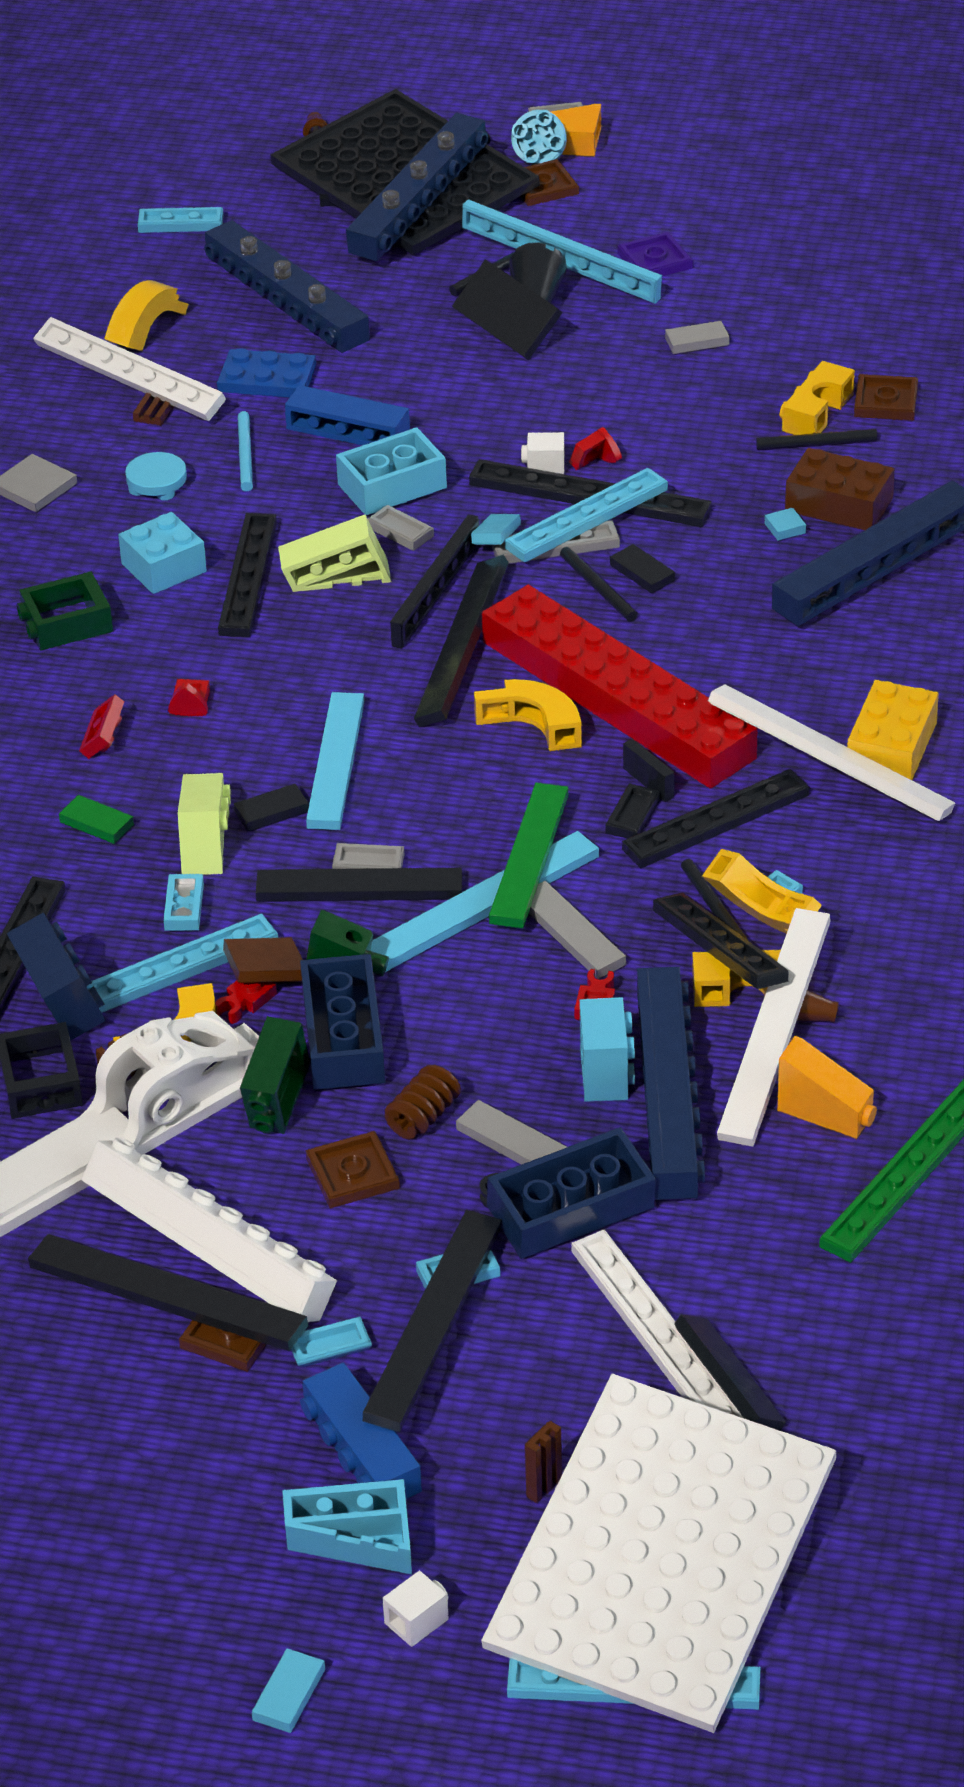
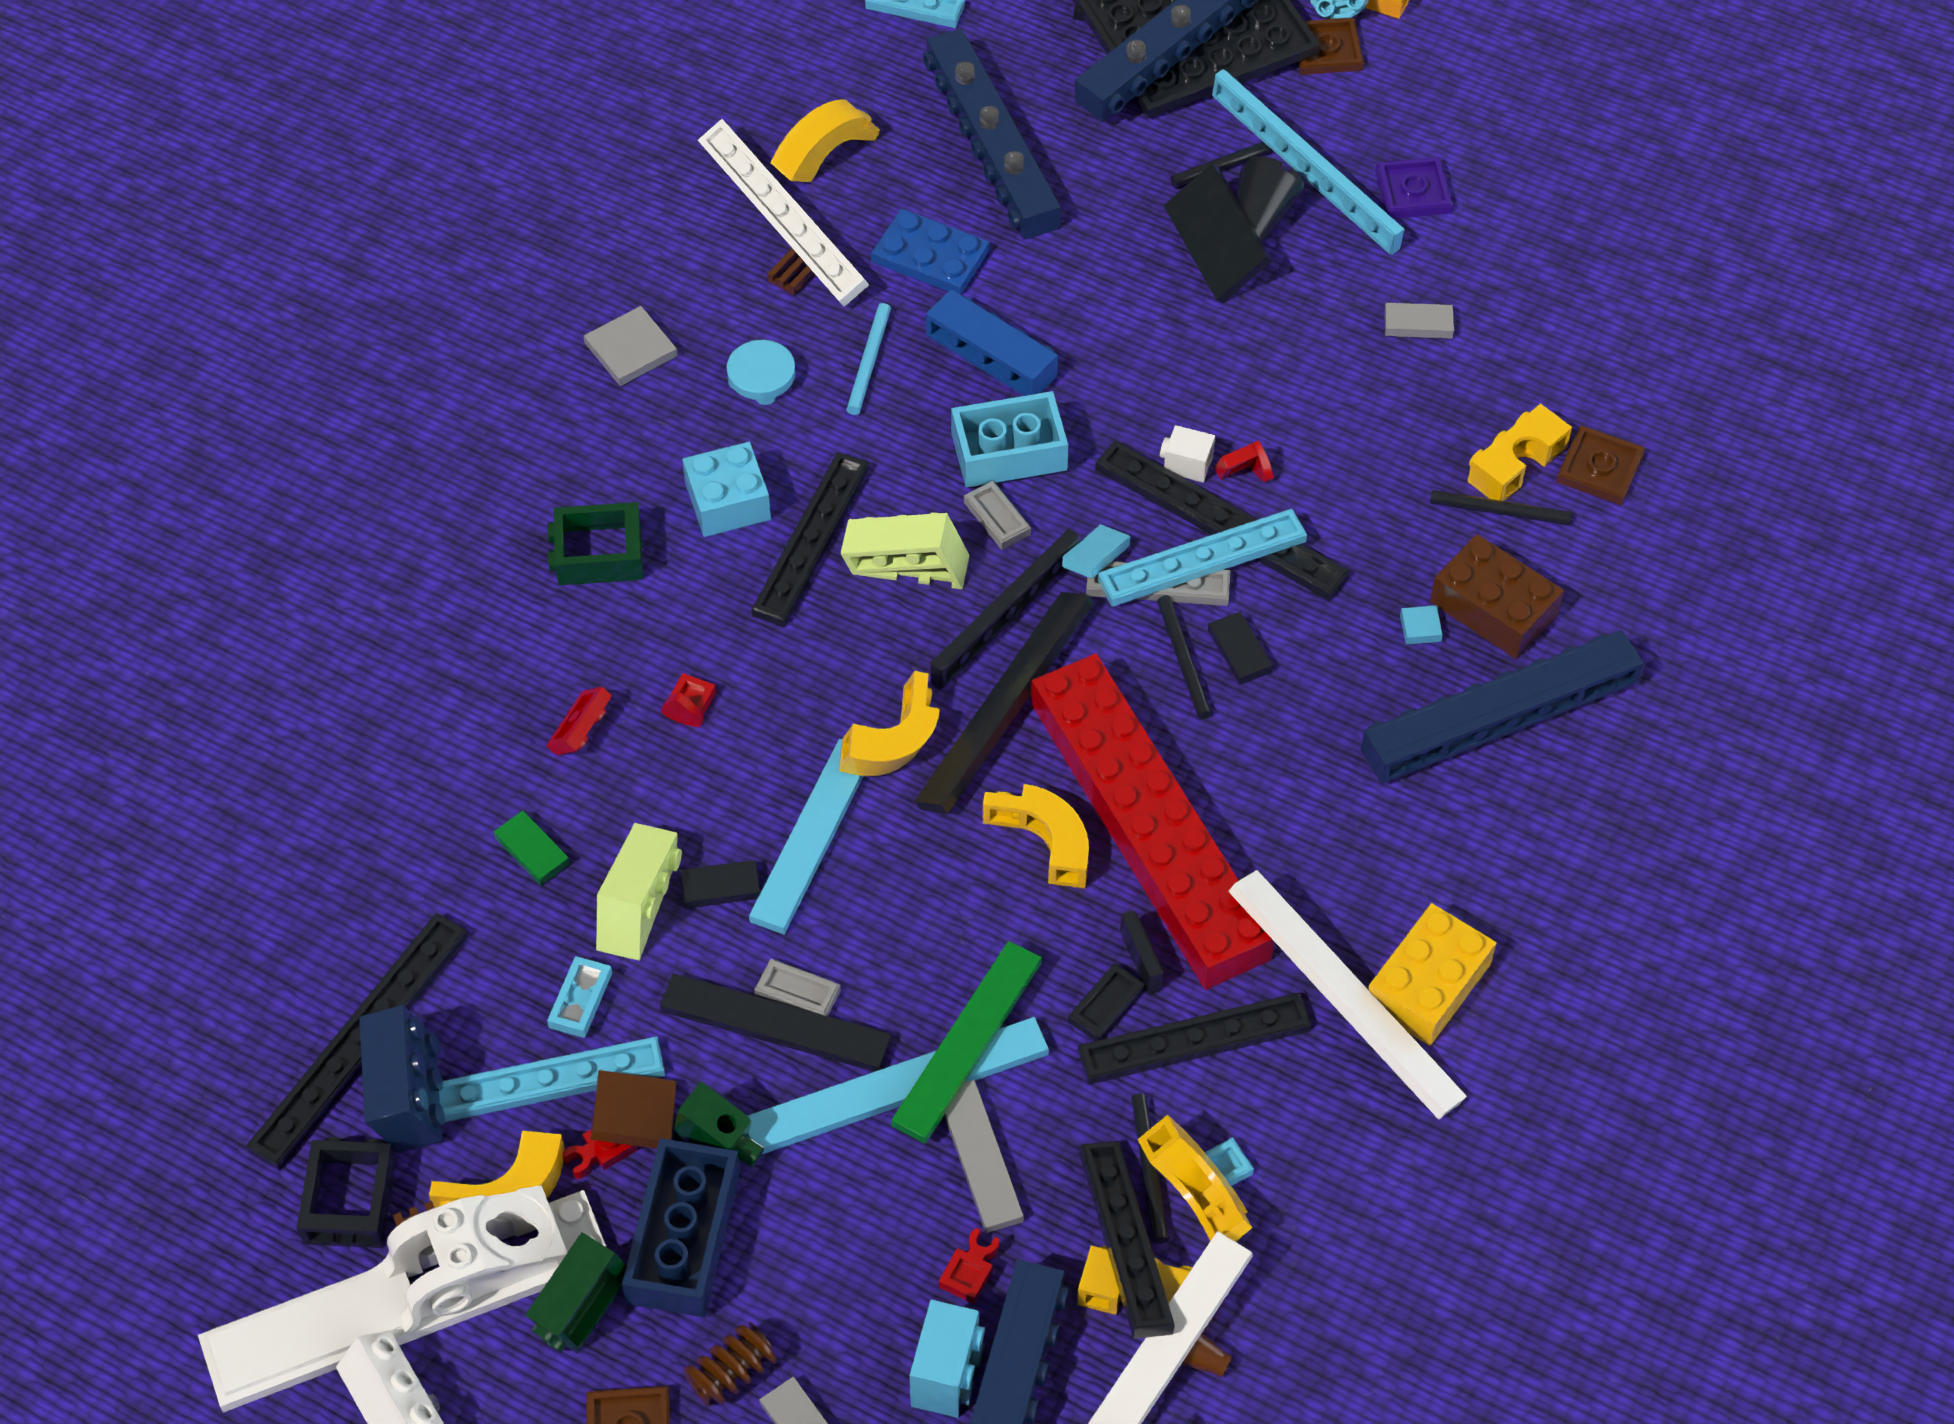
camera: 15 degrees right, 15 degrees up
(380, 684) = (882, 751): none -> yellow arch

